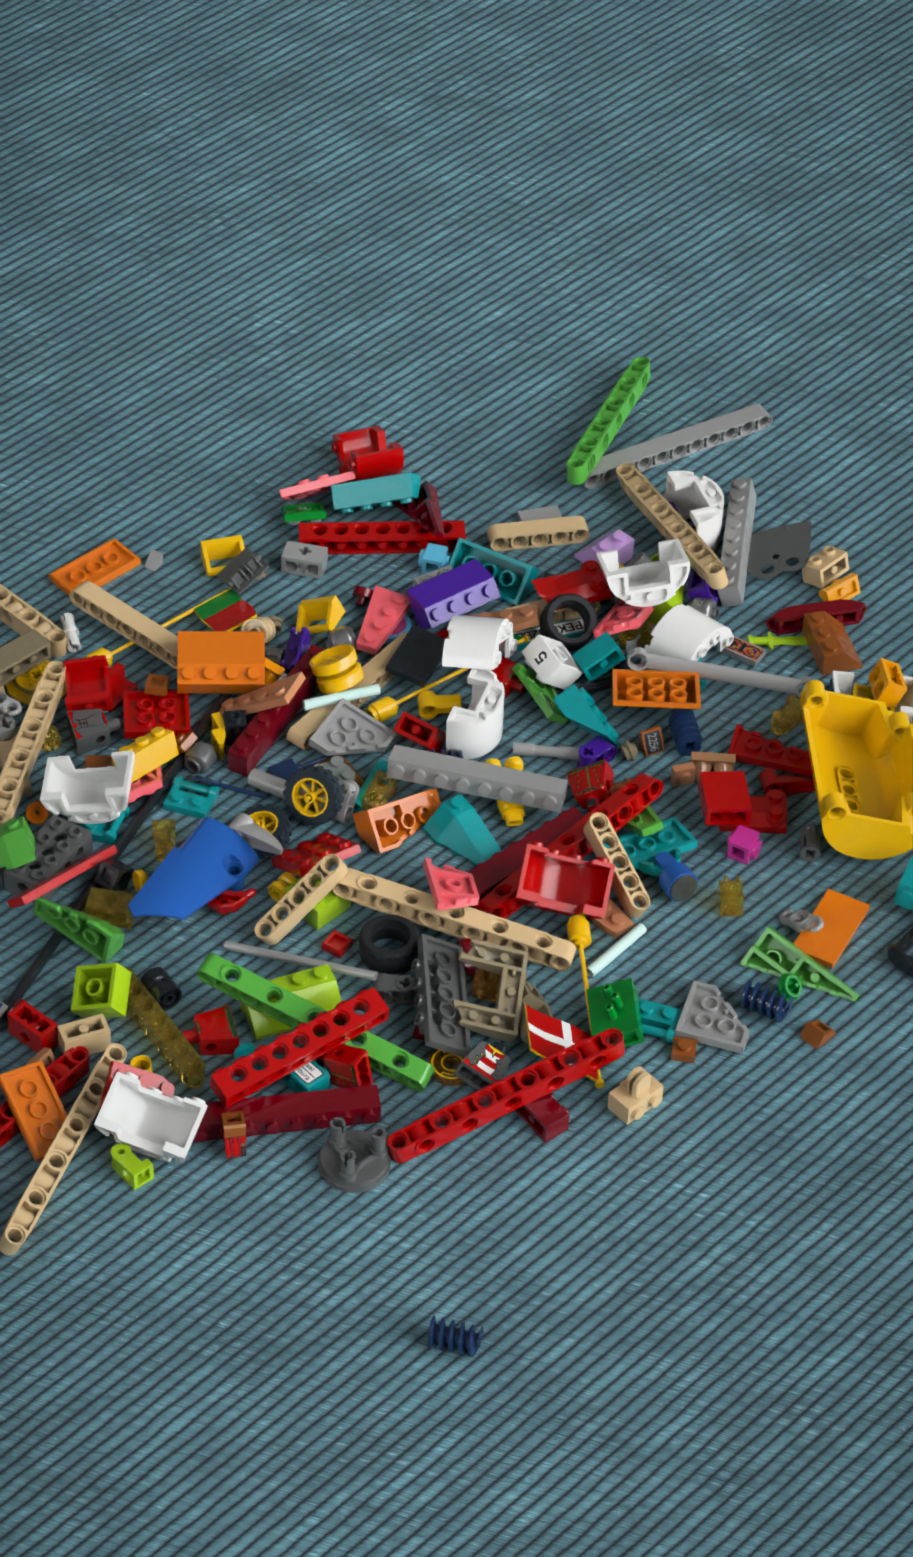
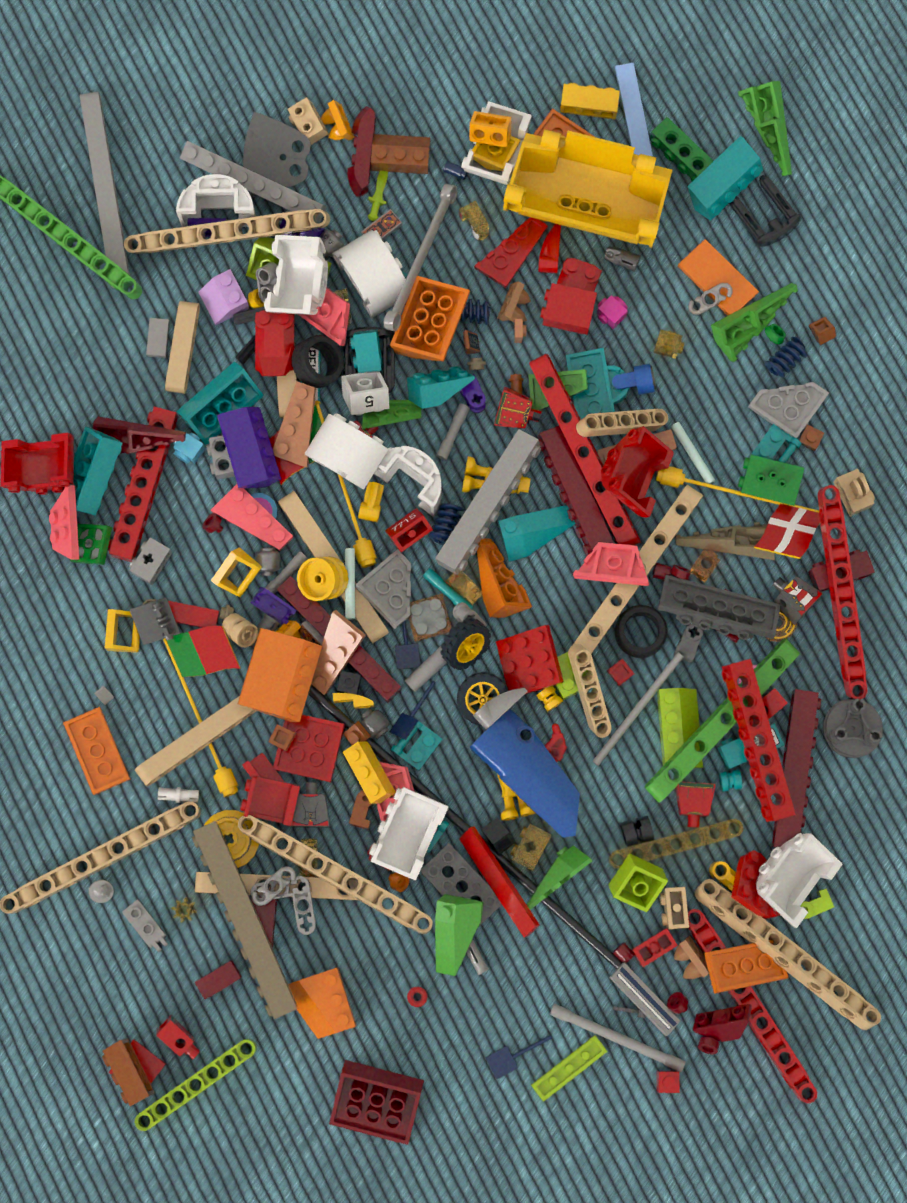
camera: 70 degrees left, 35 degrees up
(163, 837) = (464, 783): clear yellow leg -> none
(234, 1134) = (814, 815): leg -> none
(261, 597) = (194, 615): none -> red tile
(417, 656) = (317, 502): black tile -> none
(511, 966) = (753, 567): dark tan wedge -> none

